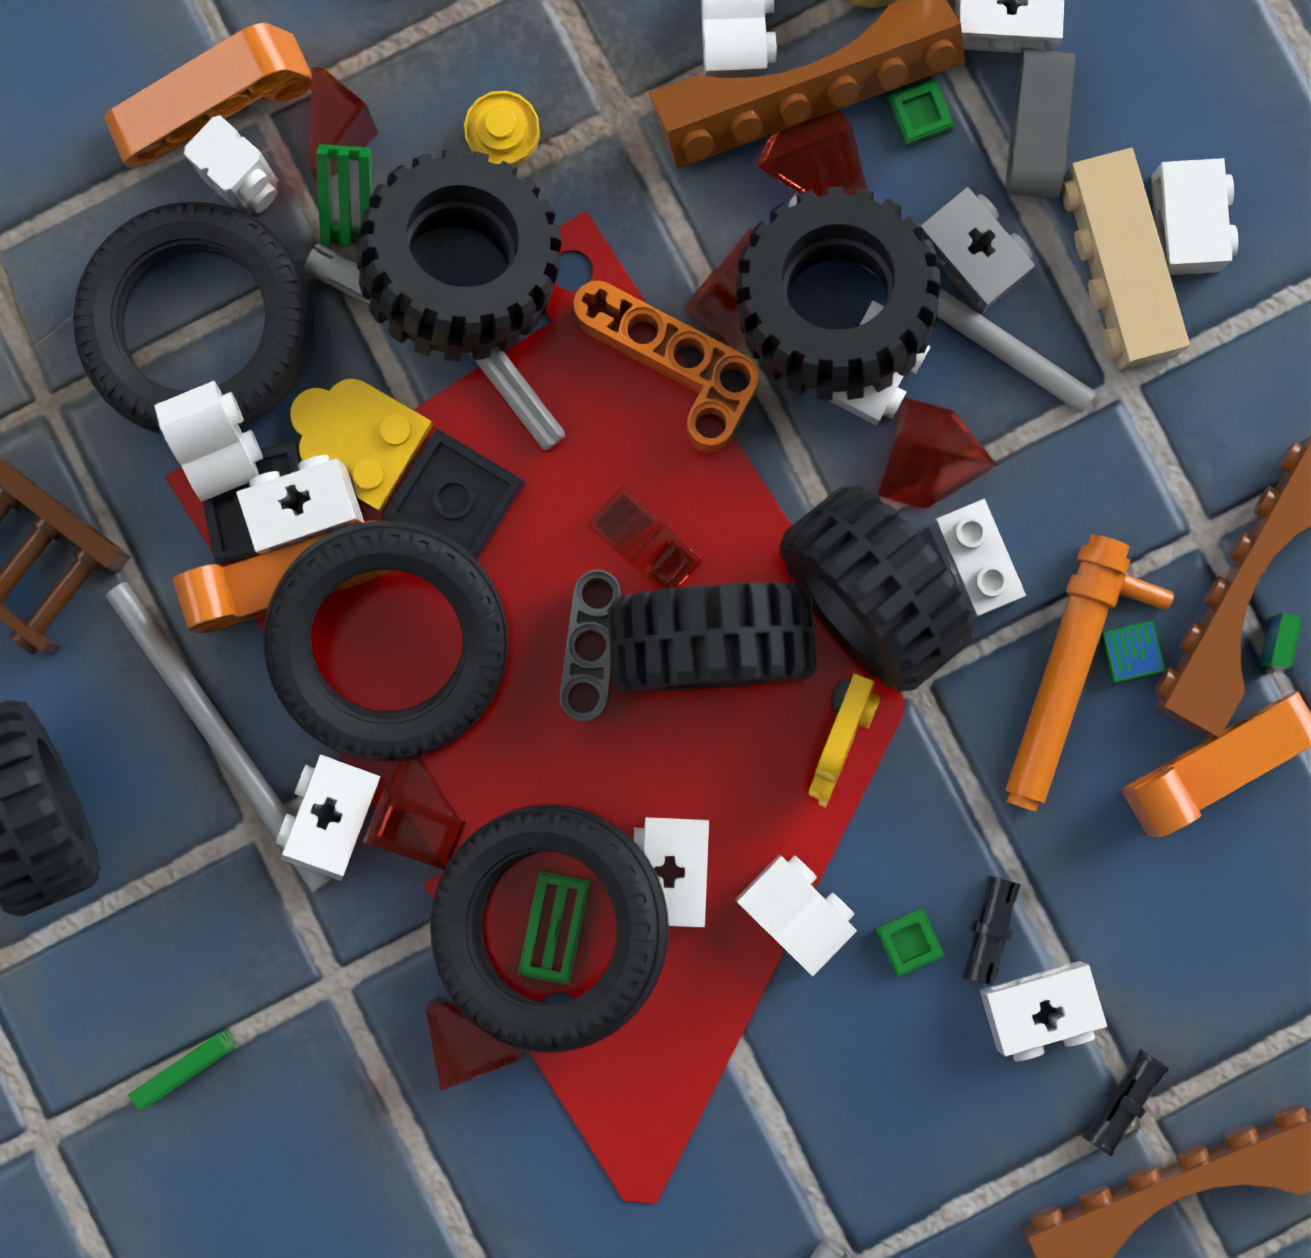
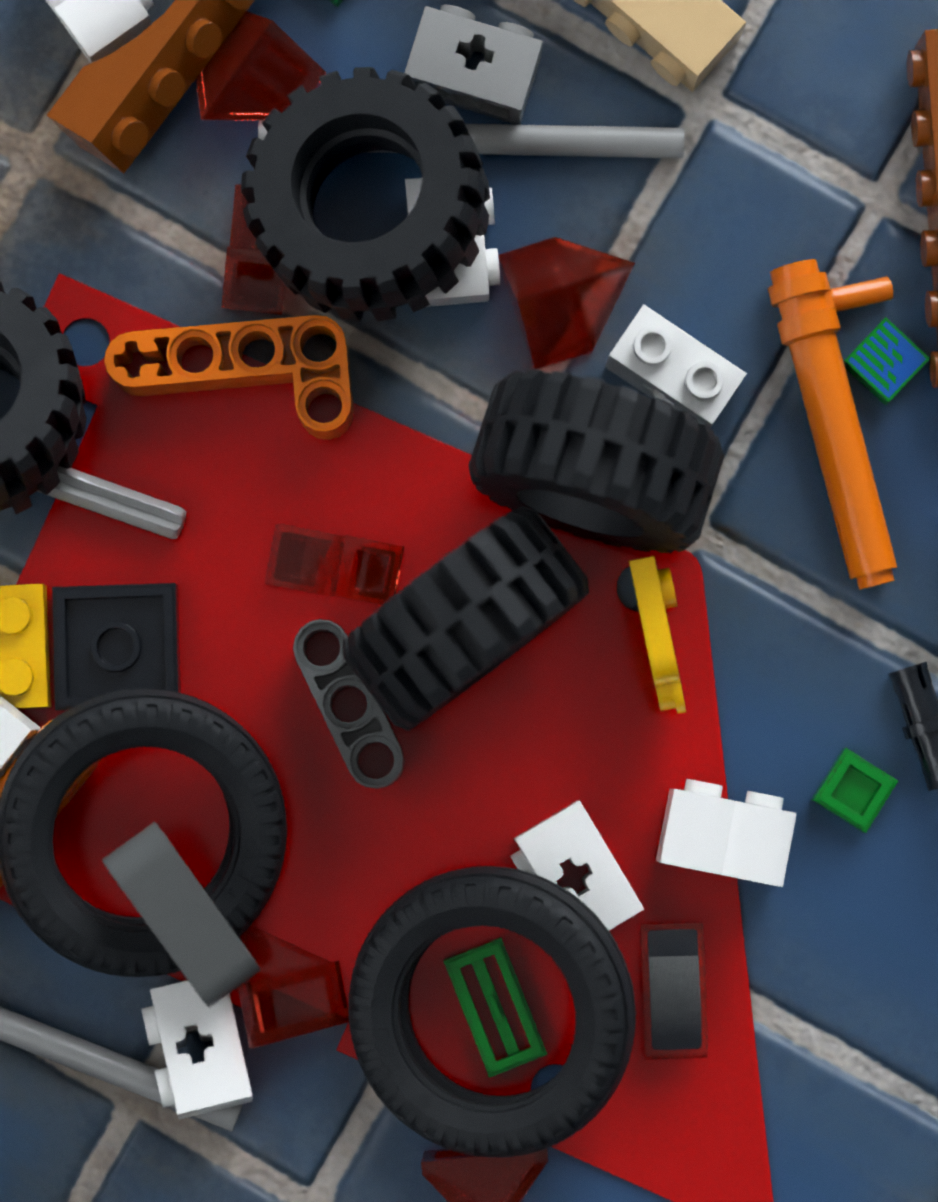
camera: 35 degrees left, 0 degrees up
(376, 716) = (181, 914): none -> dark grey beam
(687, 999) = (674, 991): none -> slope

